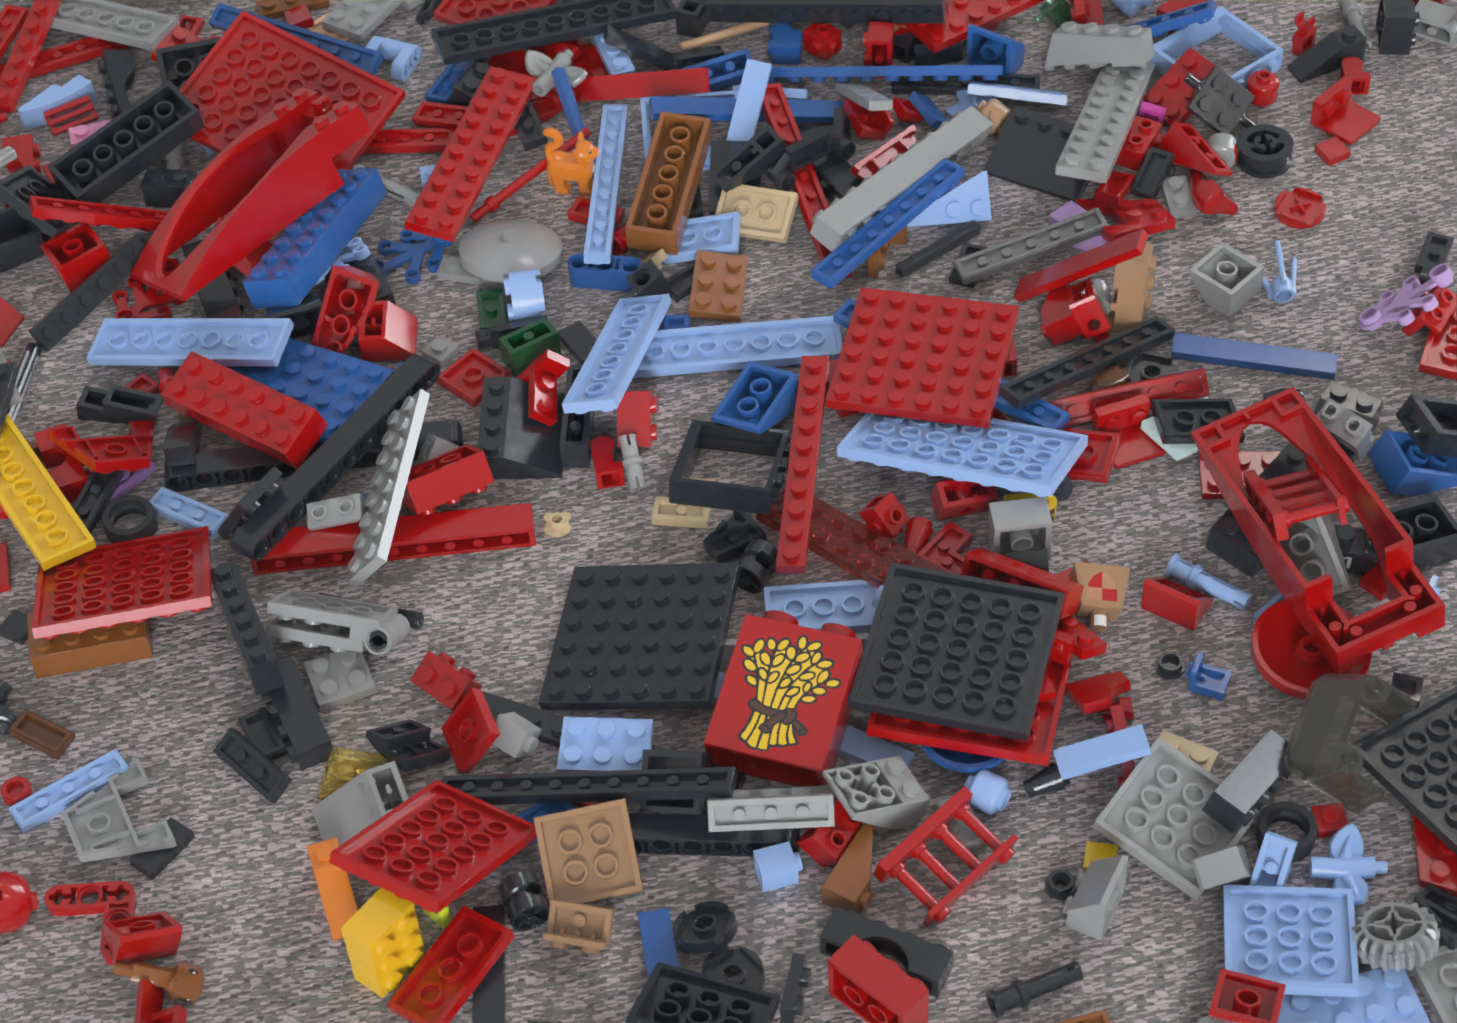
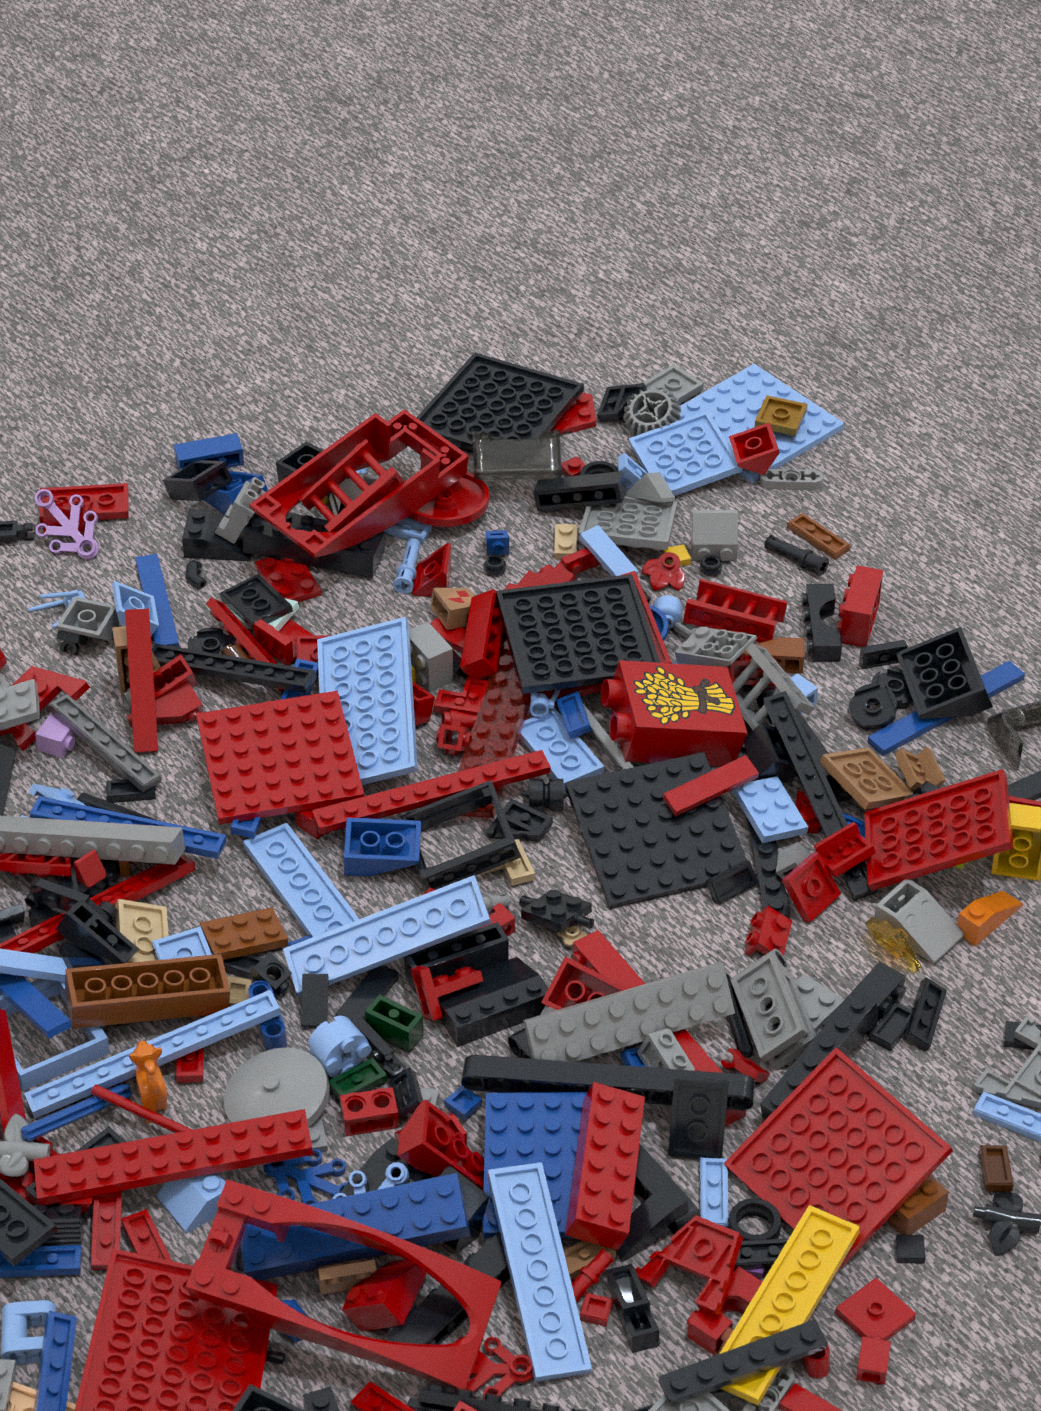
camera: 120 degrees left, 5 degrees down
(297, 583) = (746, 1066): none -> red plate
(407, 745) = (846, 920): black slope -> none
(448, 333) = (410, 1090): none -> black tile
(449, 306) = (369, 1111): none -> red brick
(467, 376) = (440, 1063): red tile -> none
(486, 770) = (844, 849): none -> red bracket
(533, 676) = (731, 881): none -> black tile
(588, 514) = (556, 911): none -> black plate
(598, 304) = (314, 999): none -> black tile
(652, 684) = (710, 785): none -> red tile
(846, 180) = (89, 869): none -> red slope
(856, 621) = (574, 715): none -> blue tile
(1069, 828) = (664, 574): none -> red plate
(1223, 308) = (130, 598): none -> light blue slope
(1347, 864) = (604, 450): light blue plant -> none

